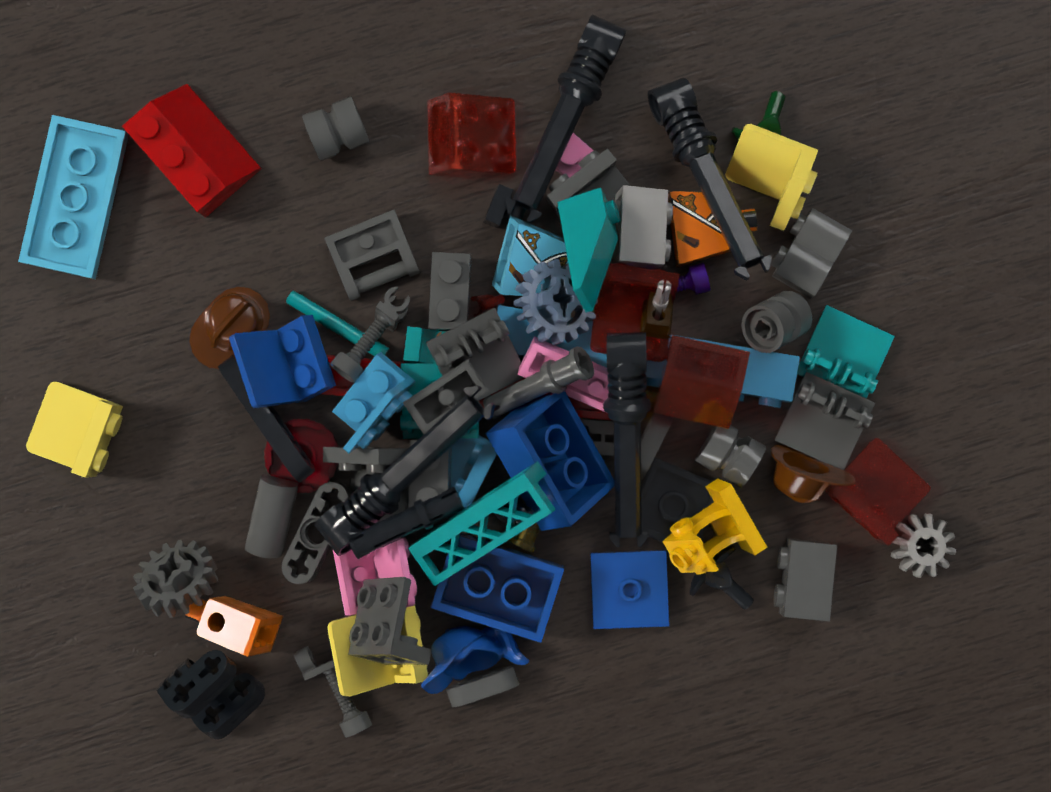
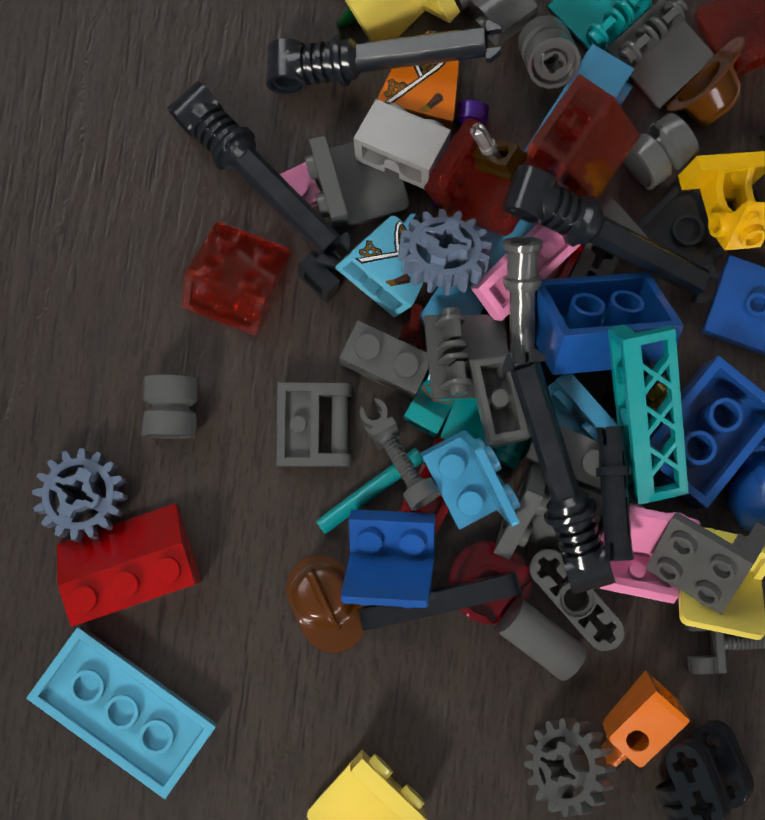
camera: 80 degrees left, 5 degrees down
(218, 85) = (72, 509): none -> sand blue gear
(589, 241) = (394, 188): teal slope -> none

